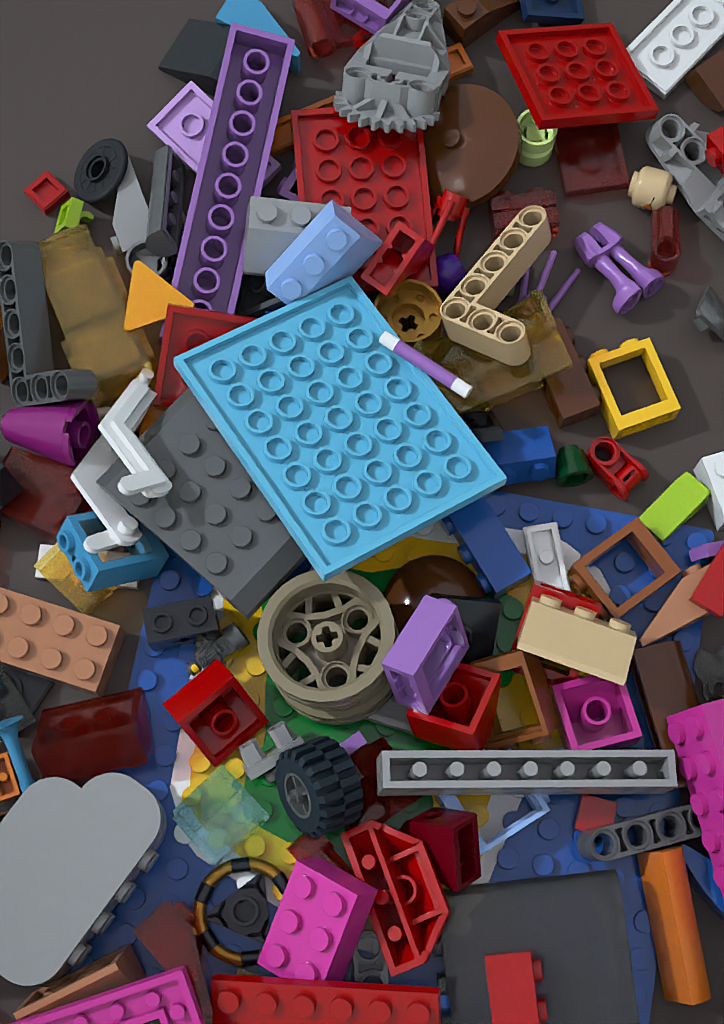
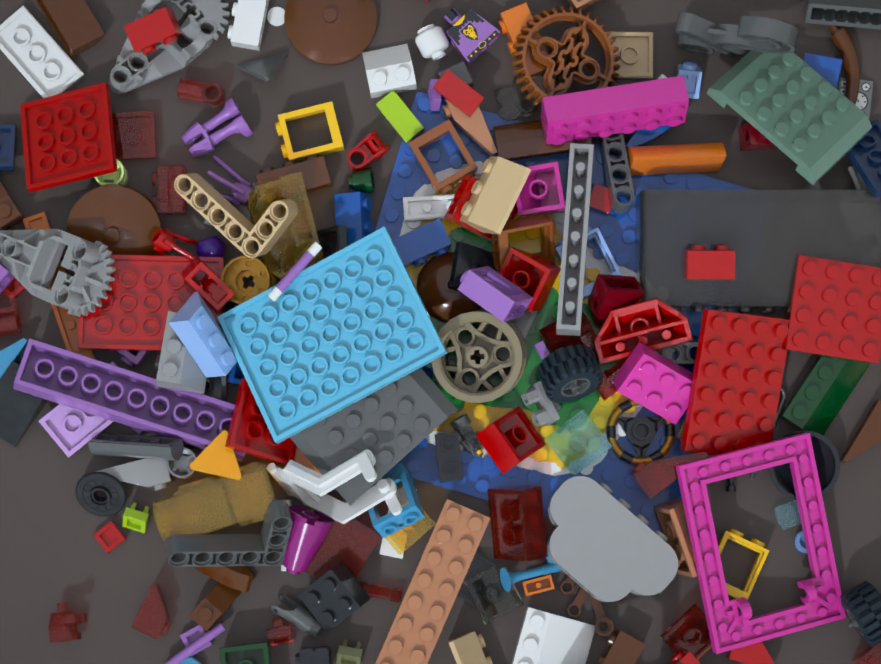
camera: 85 degrees left, 10 degrees up
(652, 188) = (161, 95): tan head -> none

